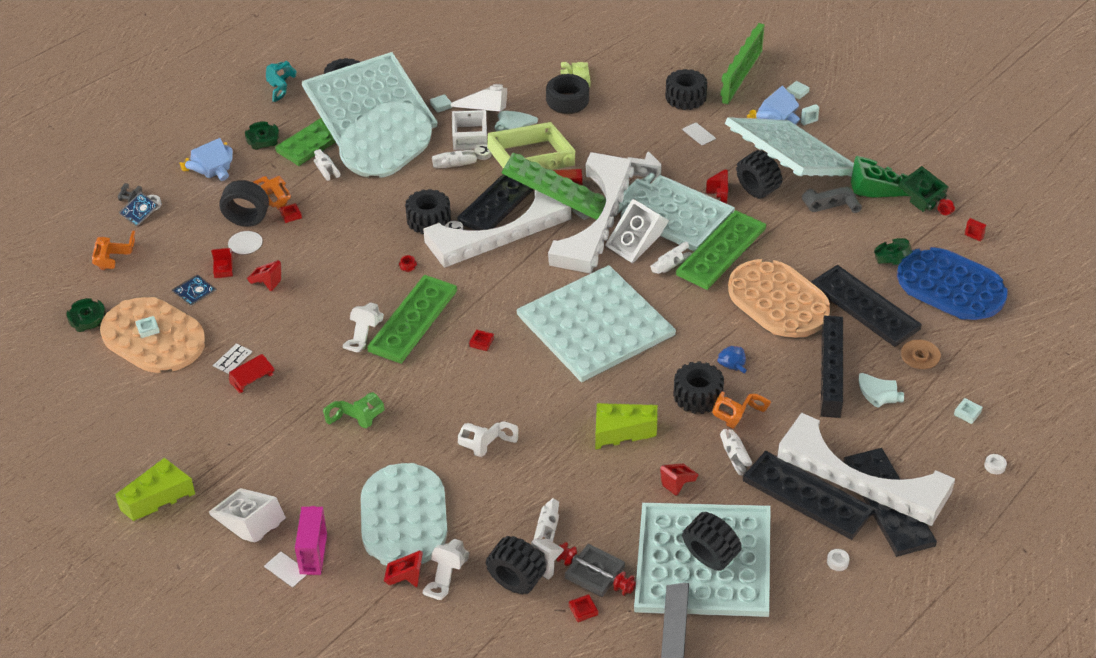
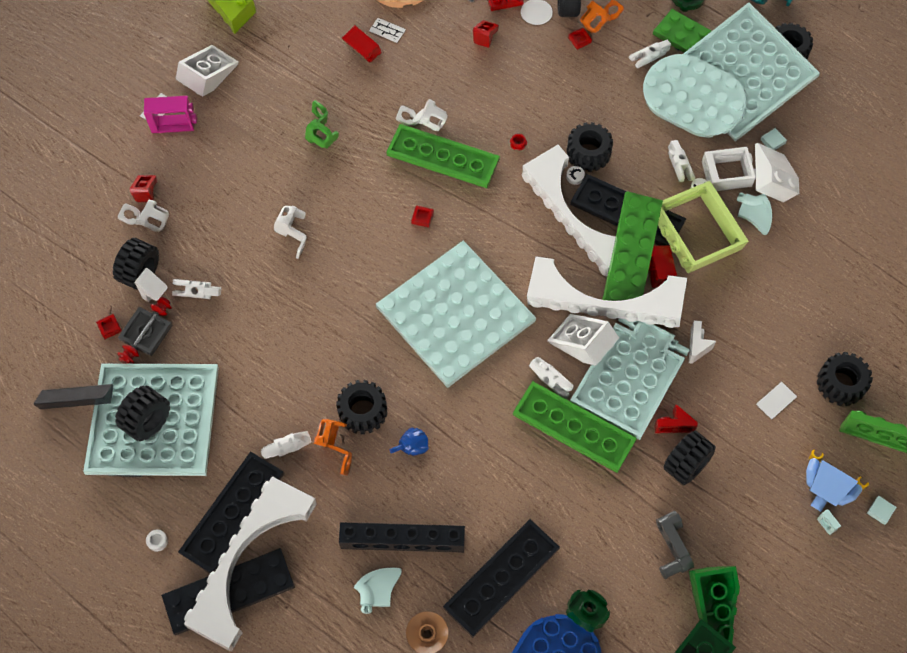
camera: 85 degrees right, 20 degrees up
(403, 512) = (210, 181): light aqua plate -> none
(567, 84) = (813, 240): black tyre -> none
(579, 68) = (854, 269): yellowish green plate -> none
(624, 422) = (313, 340): lime wedge -> none
(675, 475) = (248, 392): red slope -> none
(778, 298) = (504, 486): light nougat plate -> none
(792, 146) = (737, 492): light aqua plate -> none

